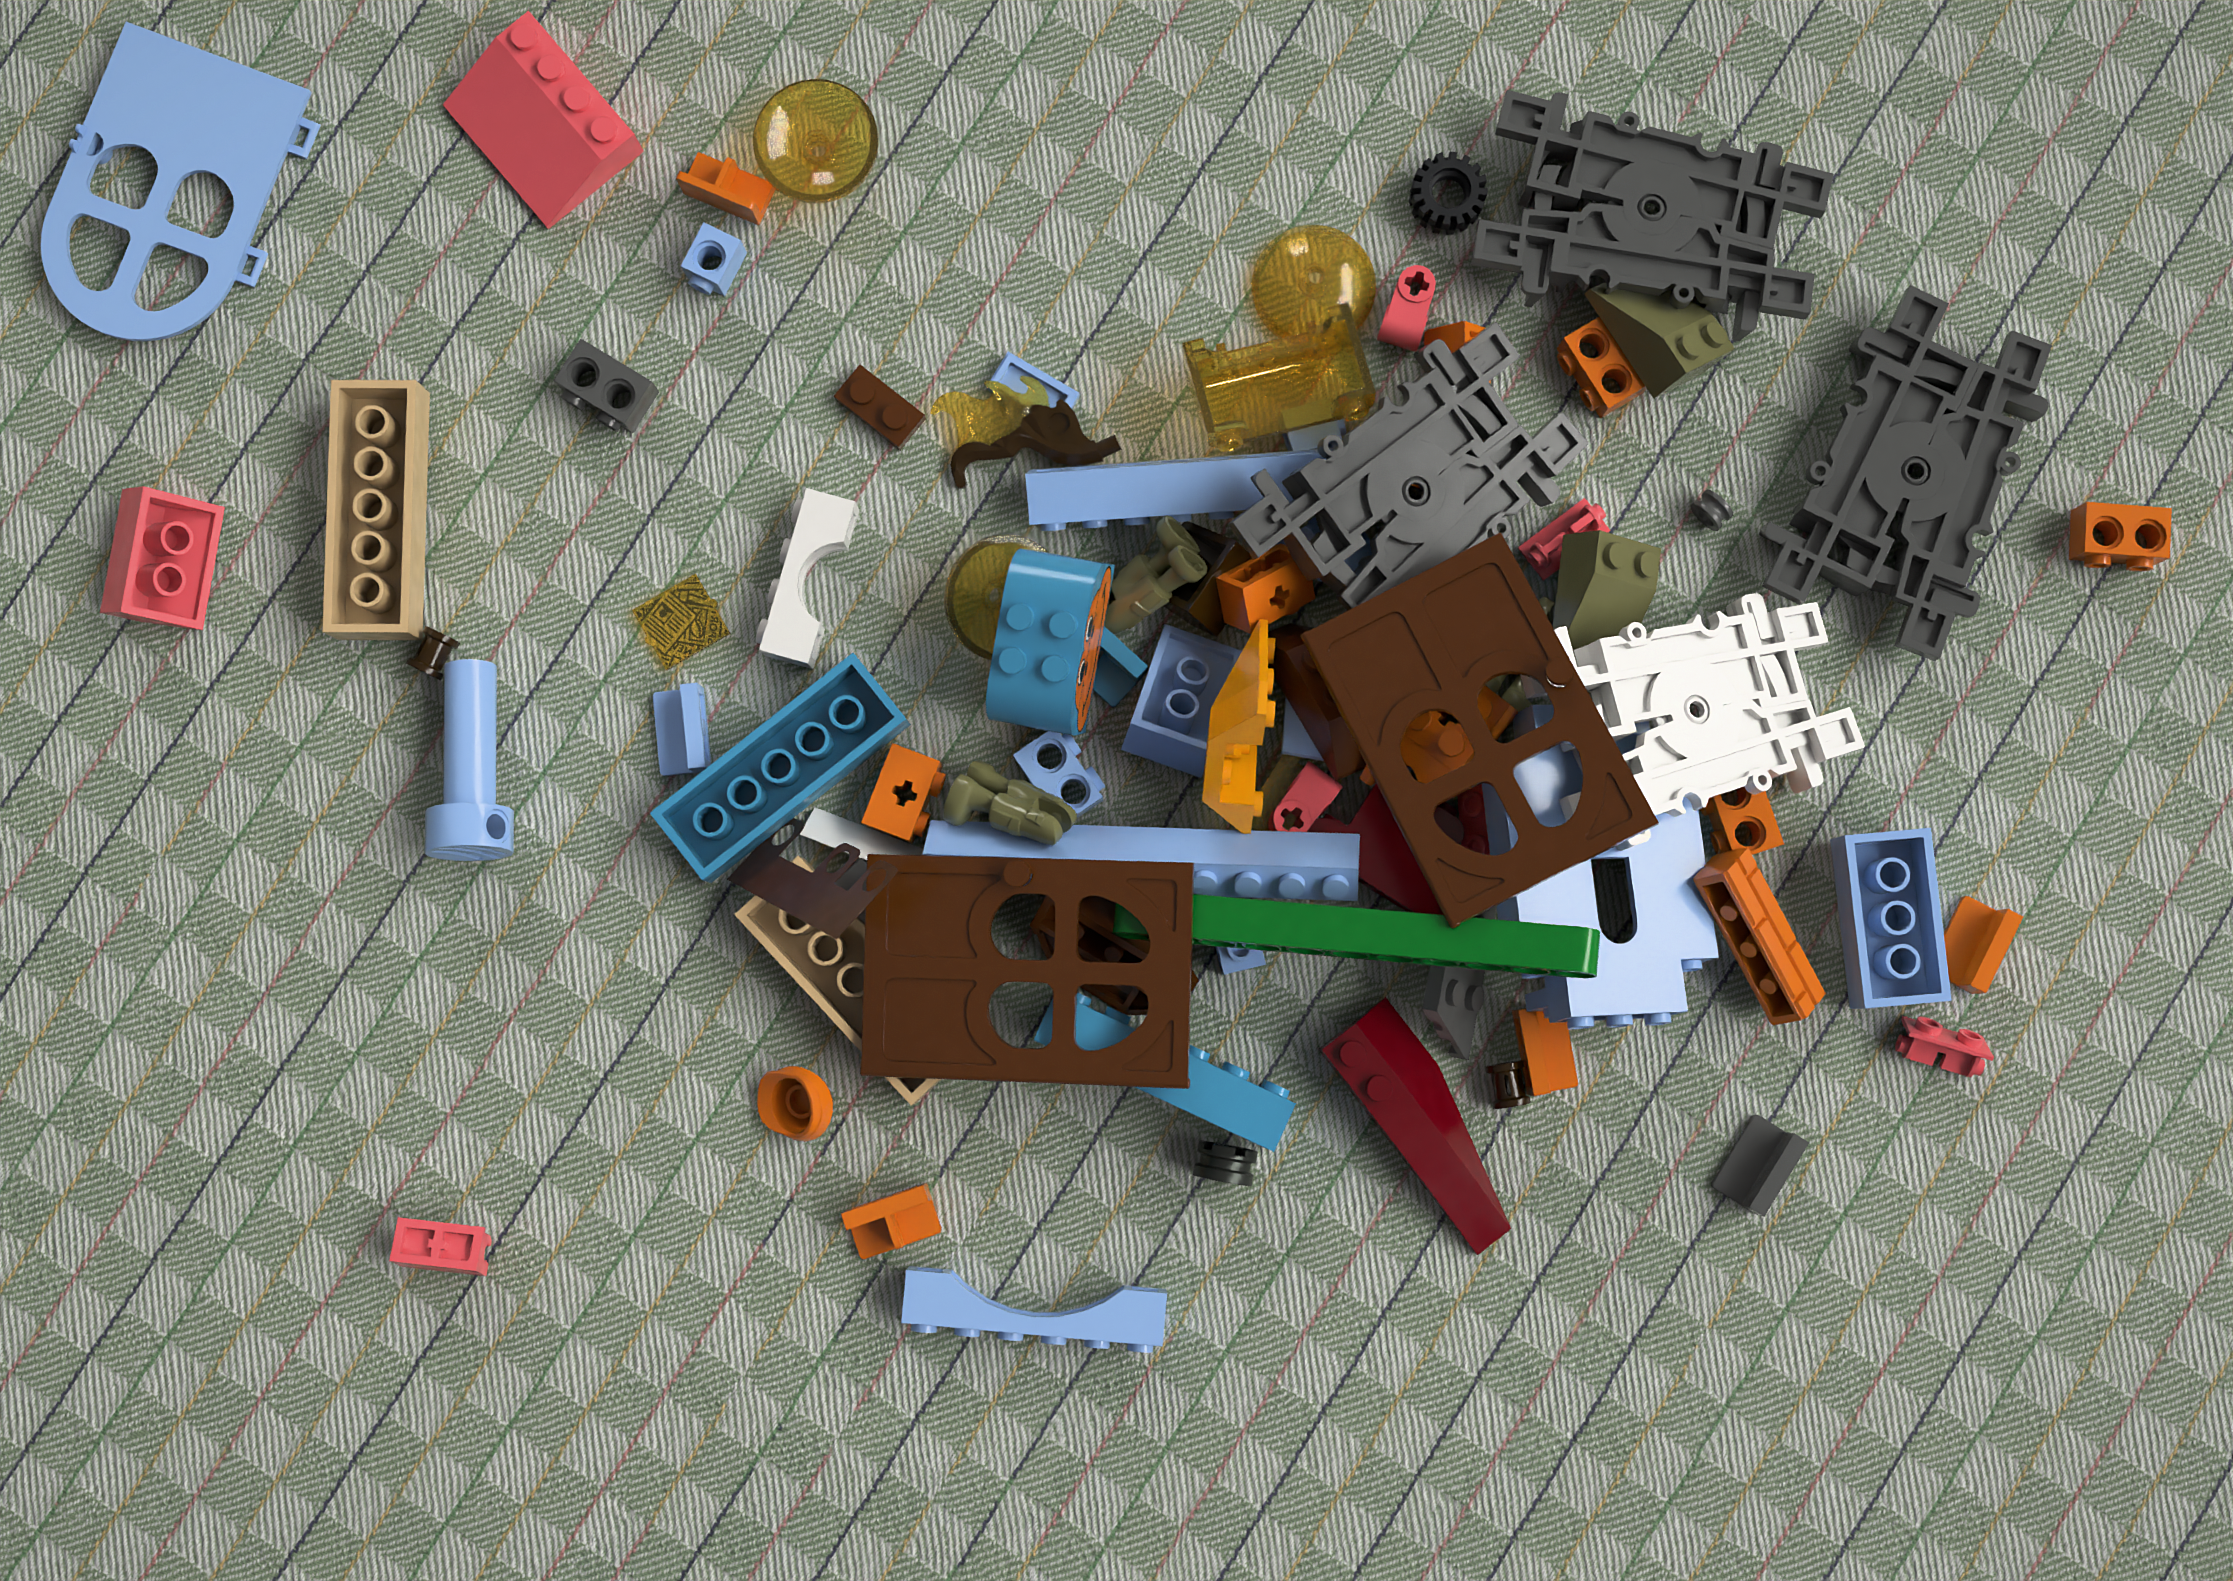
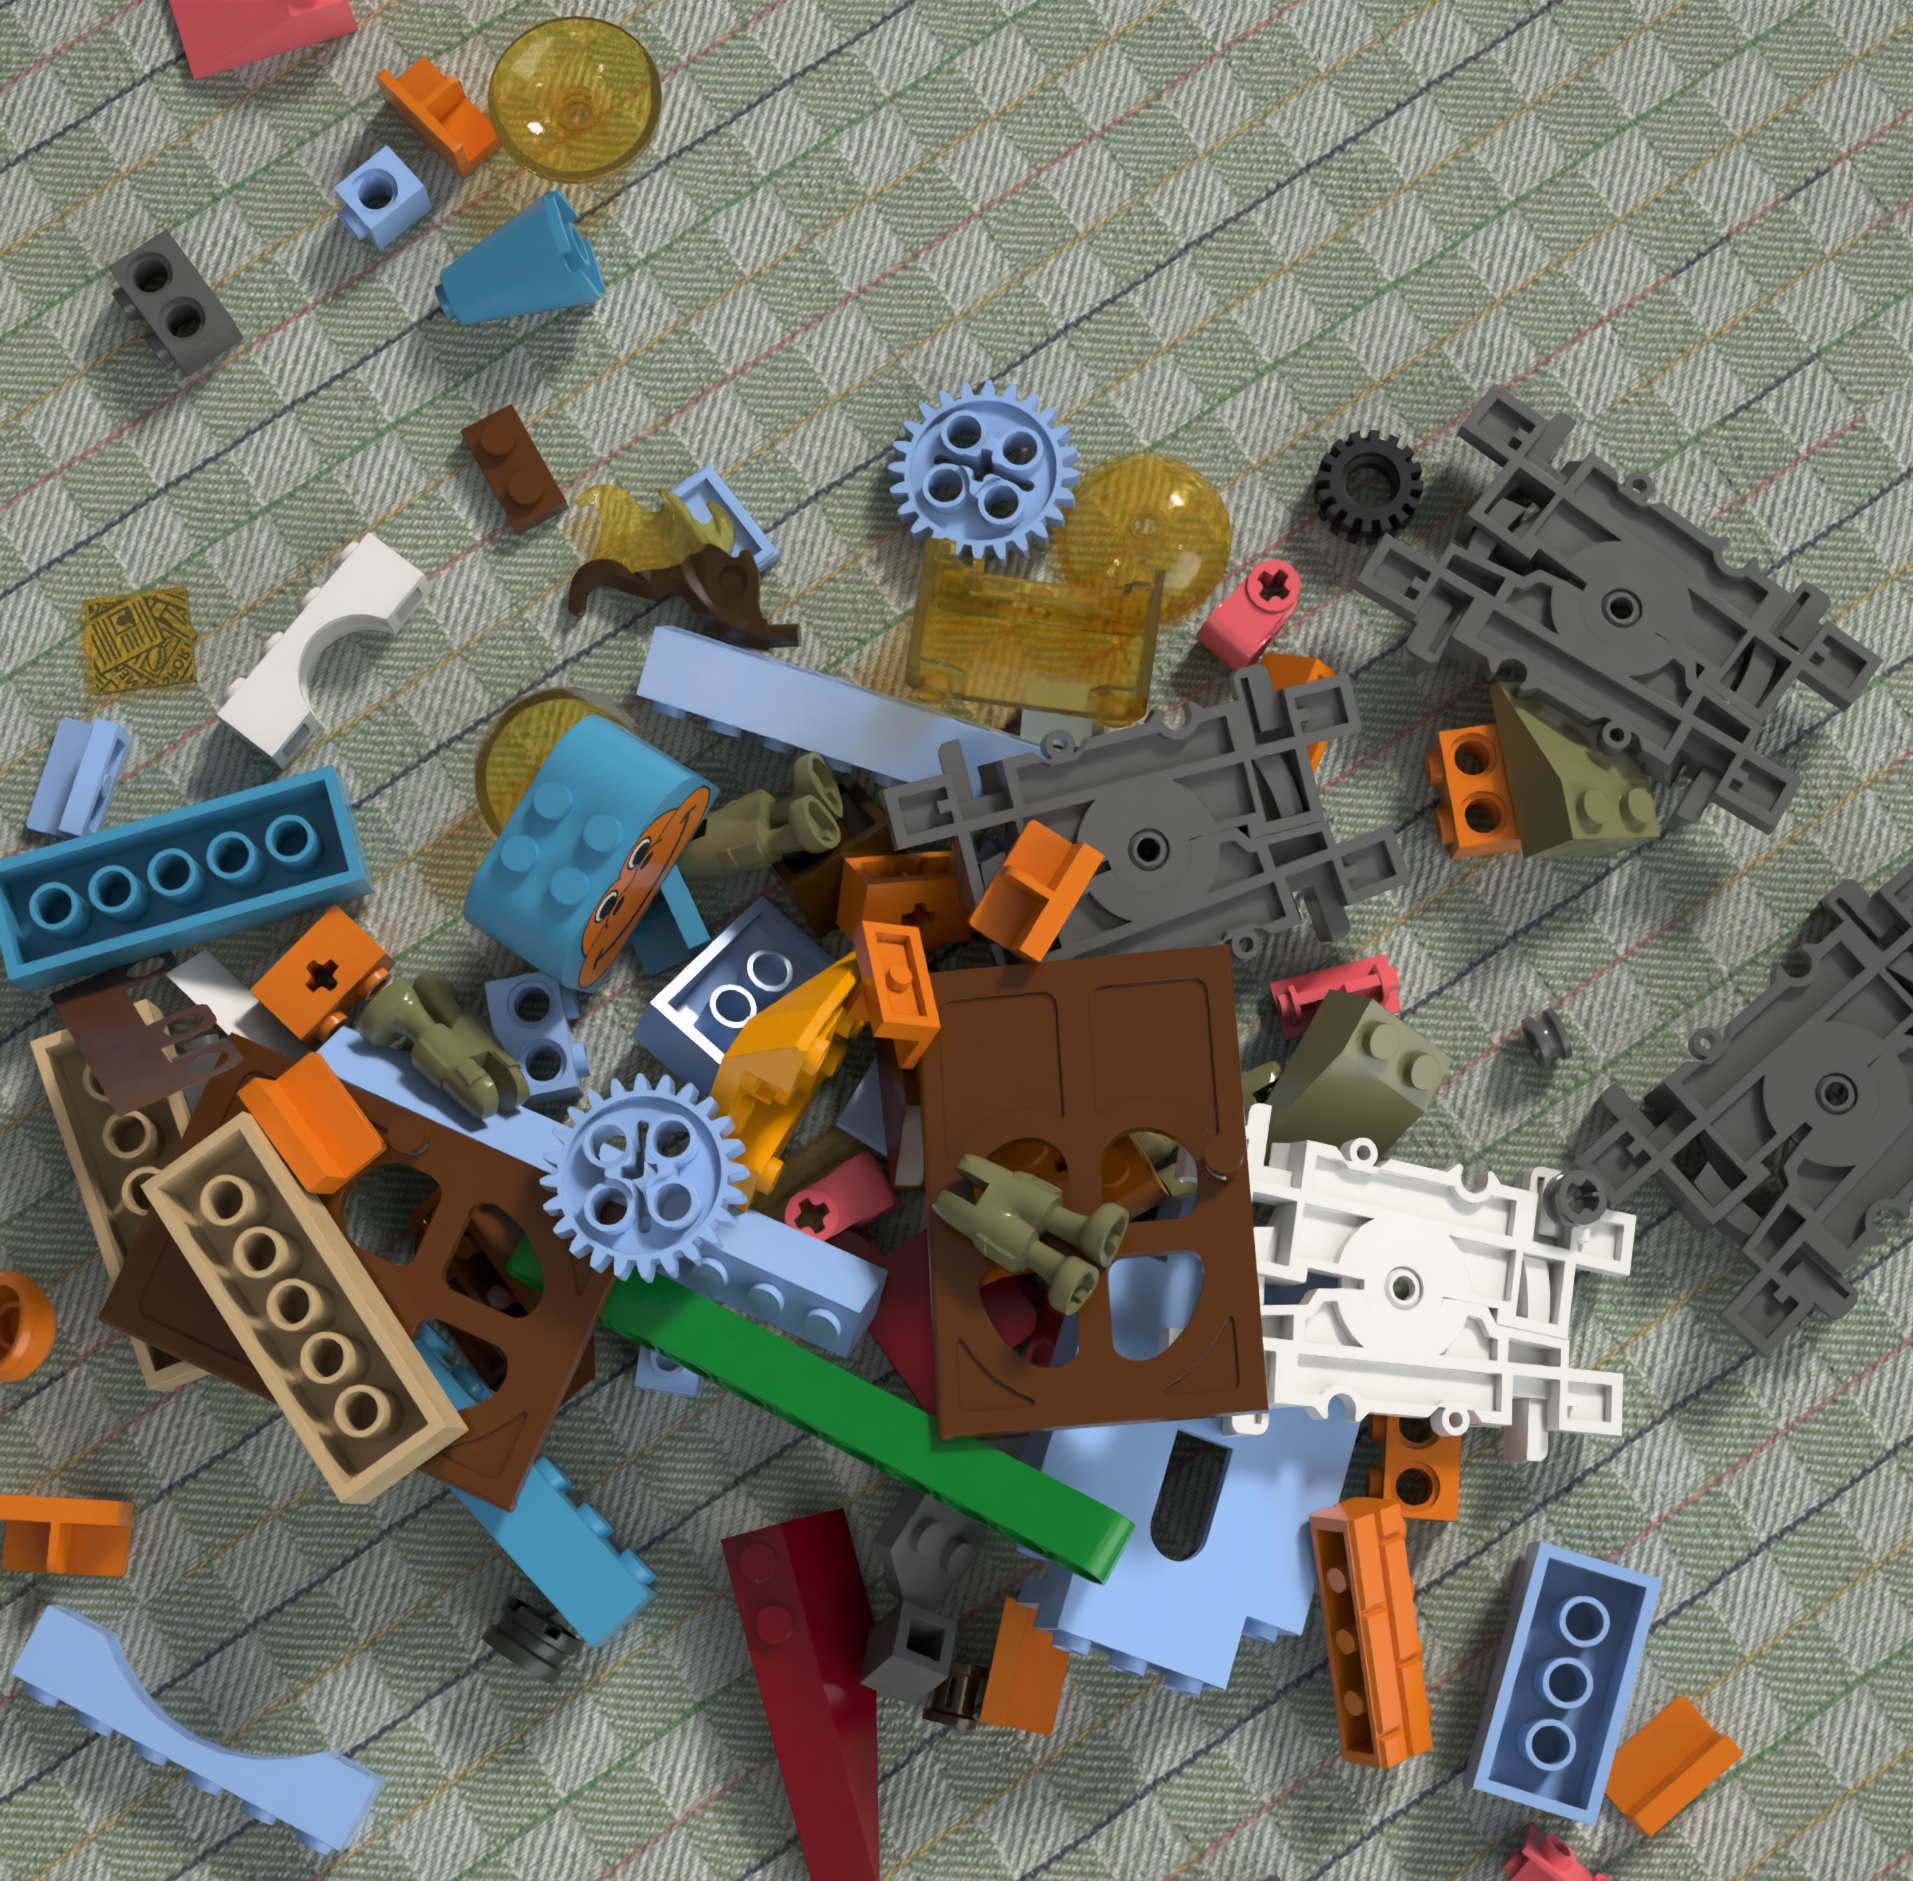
camera: 20 degrees right, 5 degrees down
(829, 269) = (523, 267): none -> dark azure cone
(952, 891) = (314, 1124): none -> orange panel
(1000, 1012) = (304, 1311): none -> tan brick
(1191, 249) = (1002, 427): none -> light blue gear
(1223, 820) = (588, 1184): none -> light blue gear
(1295, 649) = (895, 989): none -> orange panel
(1358, 549) = (1034, 891): none -> orange panel
(1441, 764) = (1018, 1211): none -> olive piece
(1470, 1071) = (908, 1652): none -> dark grey brick
(1767, 613) = (1593, 1197): none -> dark grey bush

